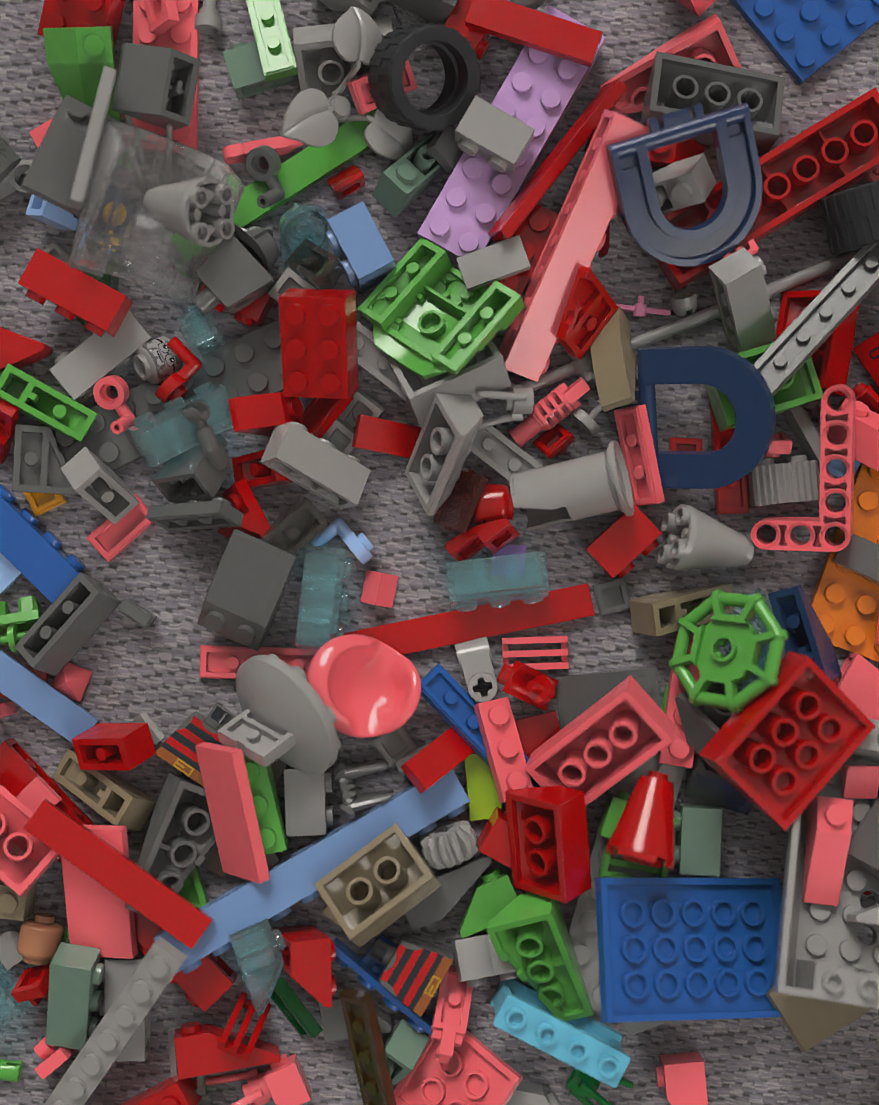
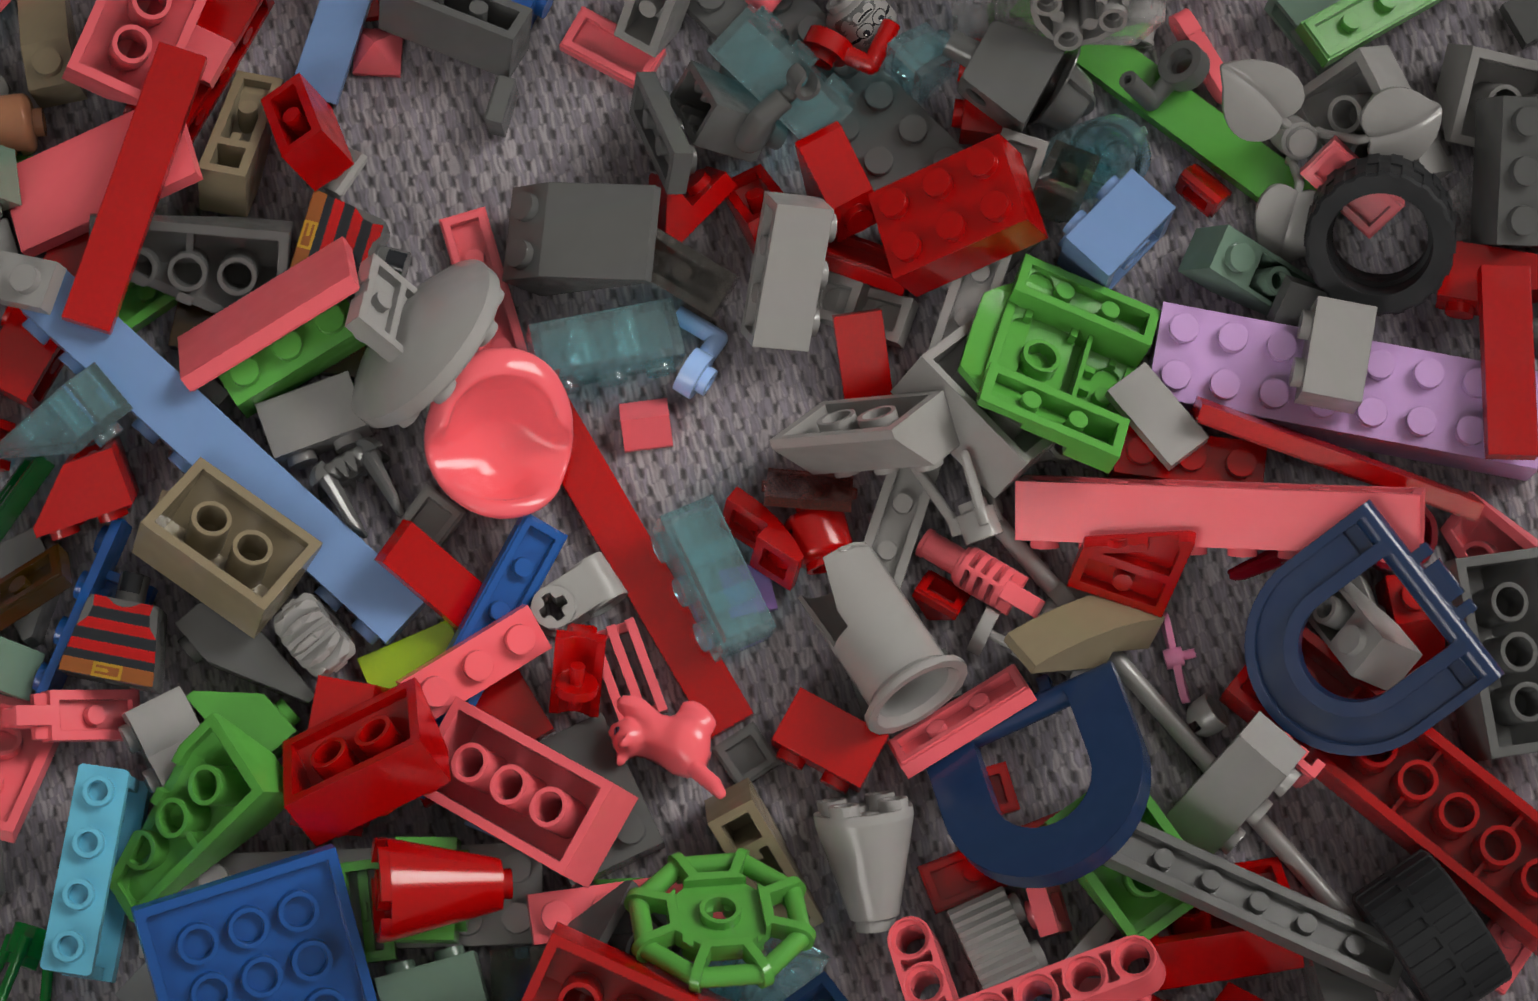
camera: 70 degrees right, 10 degrees down
(594, 638) = (673, 742): none -> coral animal

